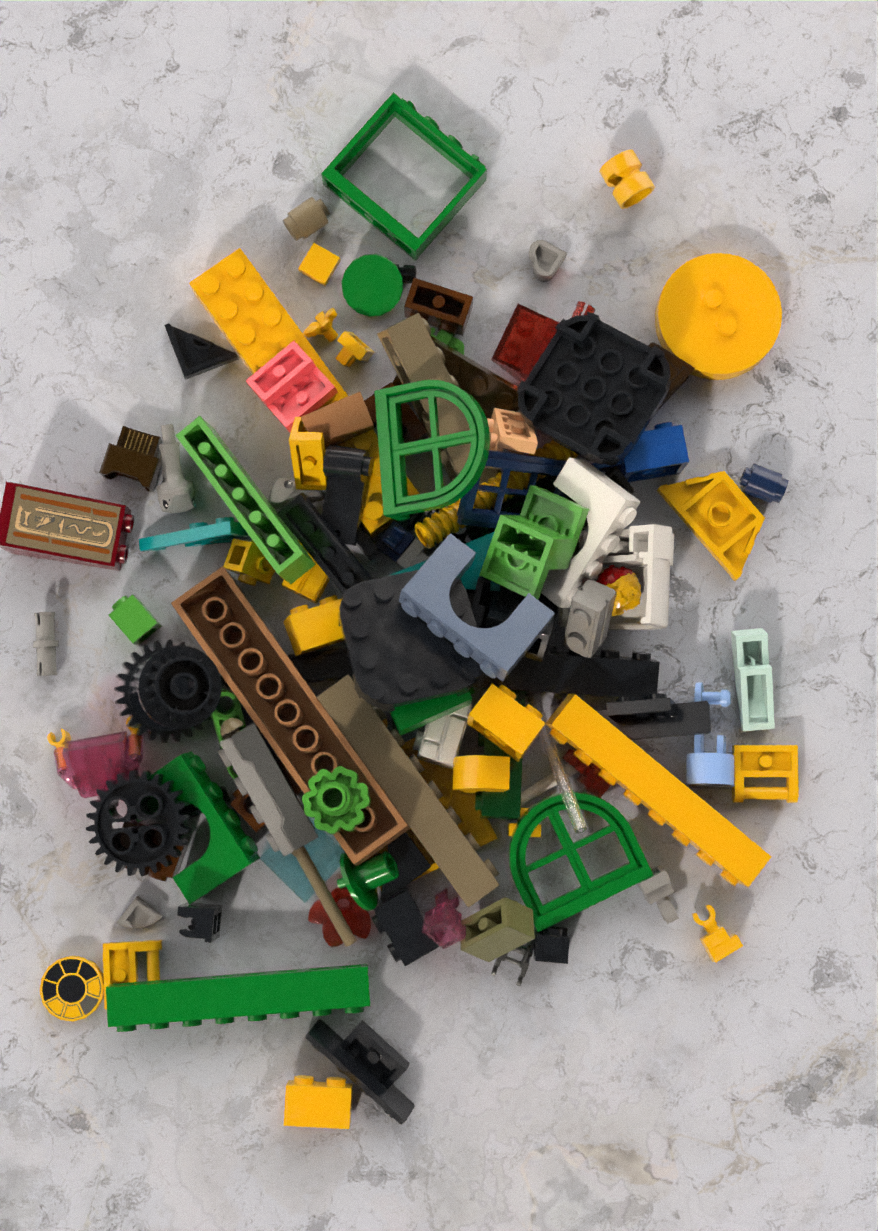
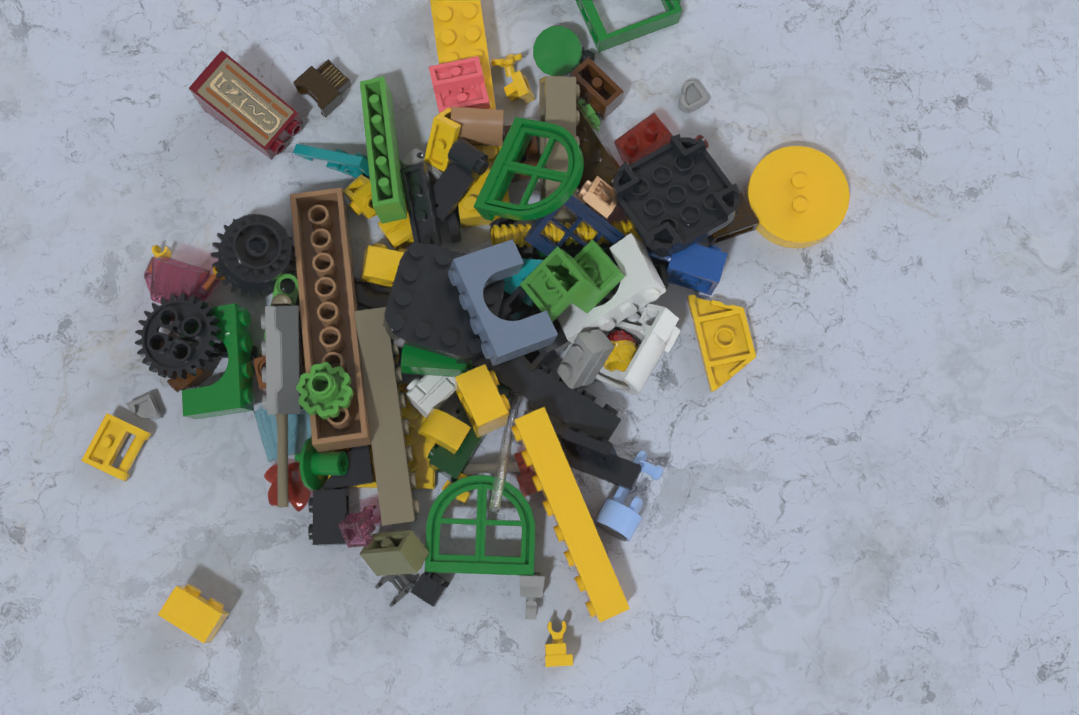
camera: 25 degrees right, 5 degrees down
(45, 643) = (189, 181): light grey pin -> none
(72, 988) = (67, 434): tile -> none
(134, 619) = (260, 196): bright green brick -> none
(175, 492) = (340, 124): light grey animal -> none
(196, 353) = (408, 38): black tile -> none
(205, 920) = (187, 435): black hinge -> none
(237, 996) = (181, 502): green brick -> none
(319, 264) = (528, 20): yellow tile -> none
(368, 1063) = (246, 603): black bracket -> none
(394, 541) = (475, 235): dark blue piece -> none
(627, 179) = (780, 68): yellow wheel -> none
(753, 679) = (686, 471): light aqua slope -> none
(763, 483) = (768, 332): dark blue brick -> none
(765, 762) = (663, 537): yellow plate -> none

